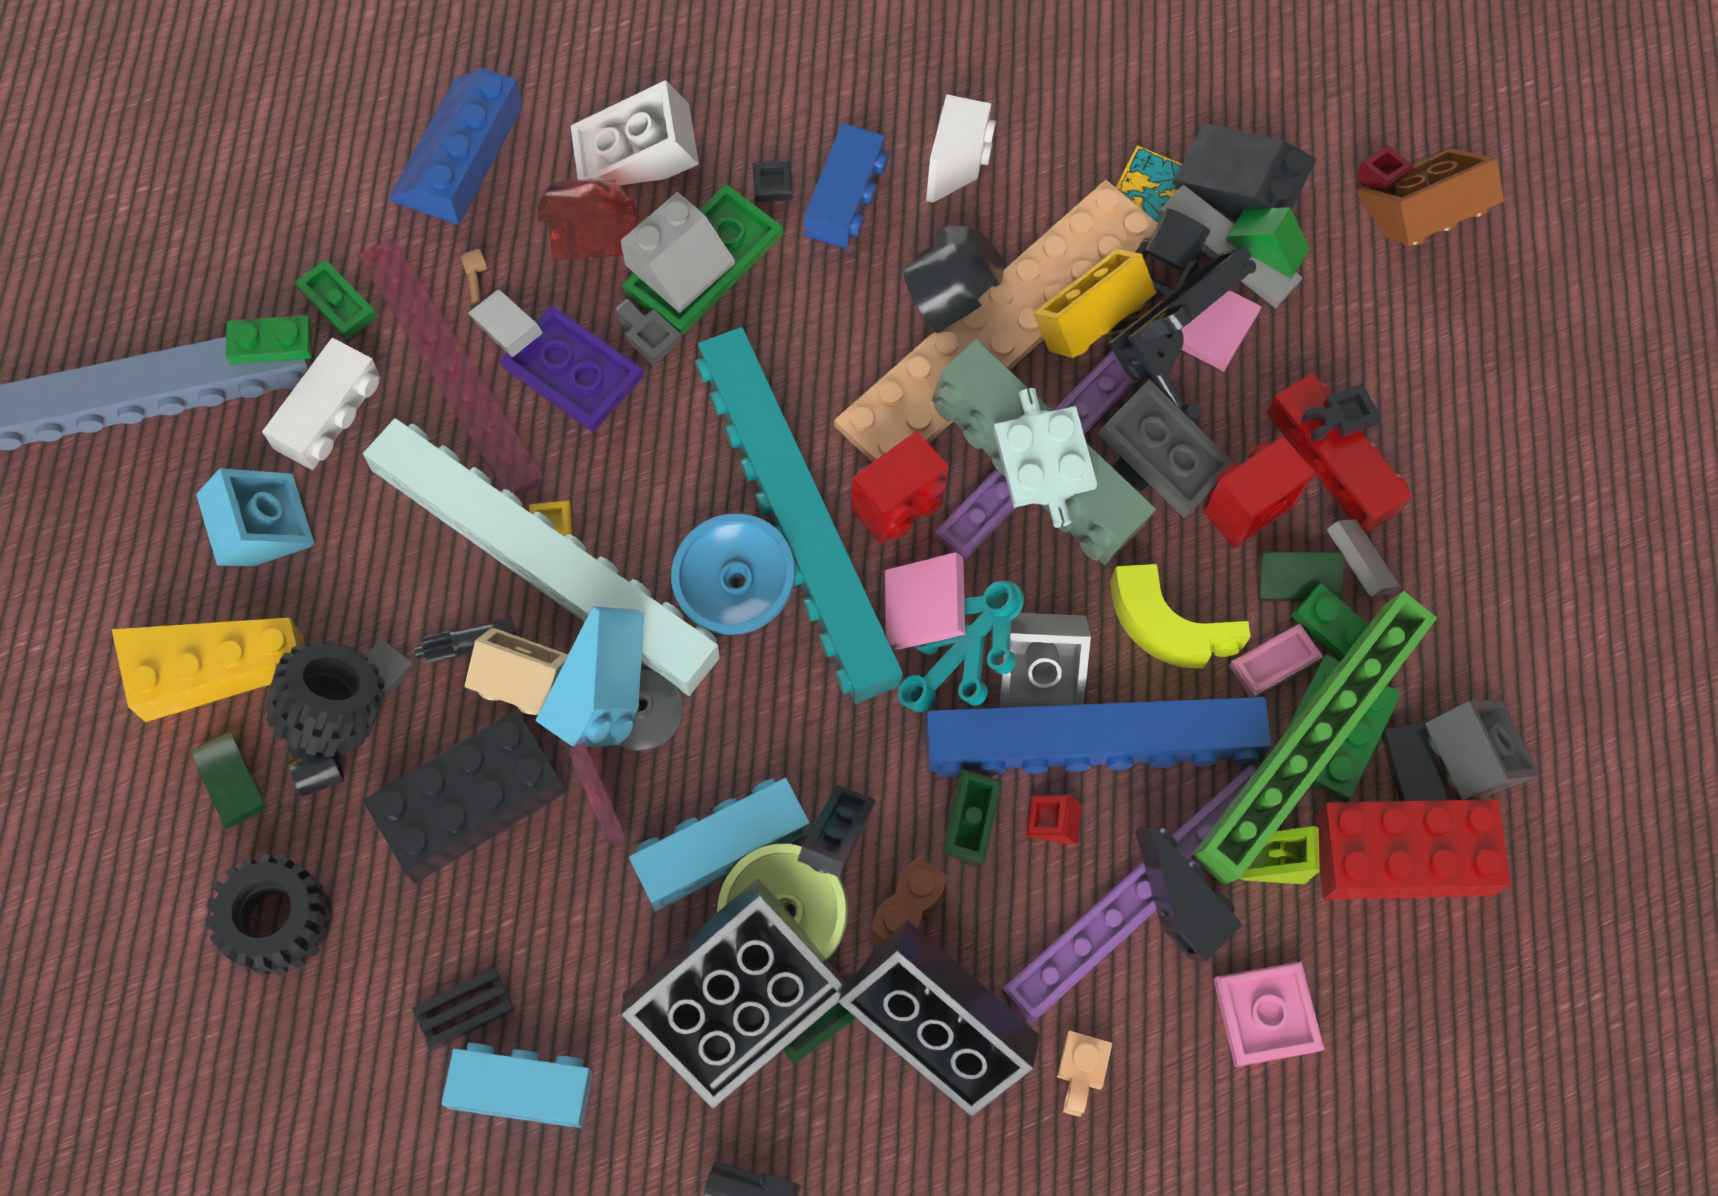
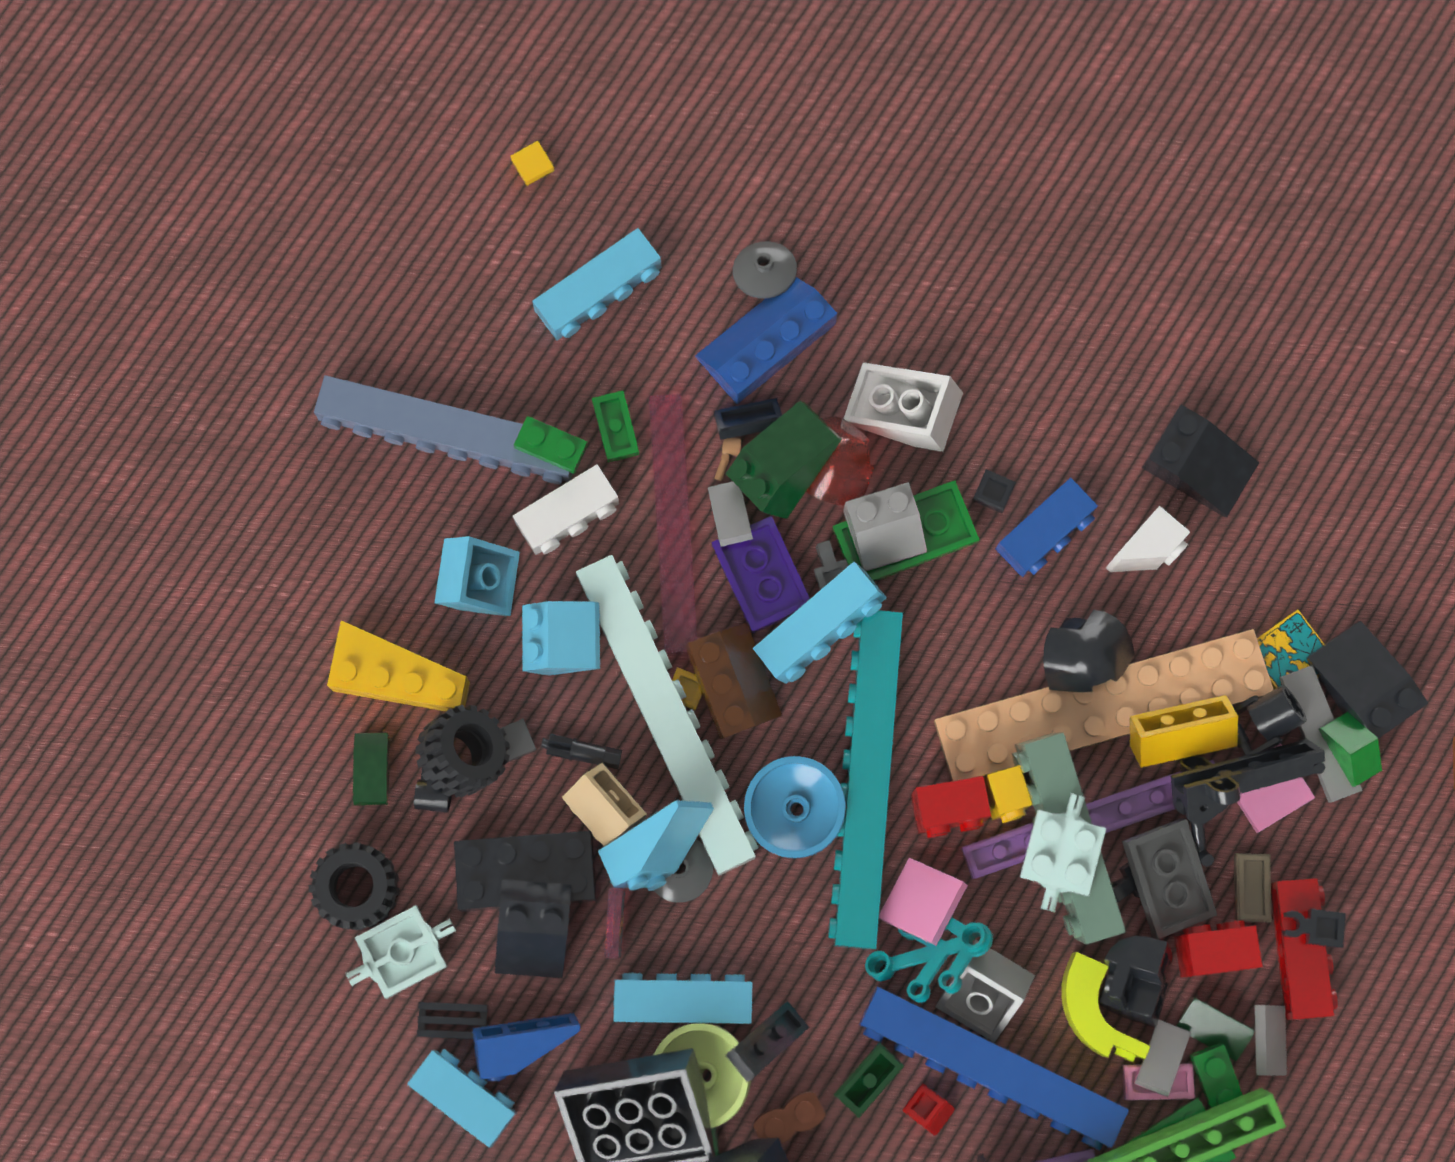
camera: 30 degrees right, 10 degrees up
(117, 96) = (532, 163): none -> yellow tile
(245, 174) = (597, 285): none -> medium azure brick
(362, 962) = (401, 952): none -> light aqua plate
(379, 528) = (560, 637): none -> medium azure slope
(420, 85) = (764, 280): none -> dark grey dish
(477, 227) = (746, 418): none -> black tile
(505, 850) = (532, 928): none -> black slope
(534, 235) = (784, 460): none -> dark green slope
(549, 996) = (515, 1045): none -> blue slope
(594, 484) = (733, 680): none -> reddish brown slope
(659, 377) = (820, 623): none -> medium azure brick
(956, 442) = (1007, 794): none -> yellow brick
(961, 57) = (1201, 461): none -> black slope
(1192, 562) = (1137, 979): none -> black brick
(1249, 417) = (1252, 887): none -> dark tan tile
(1269, 631) = (1163, 1058): none -> light grey tile

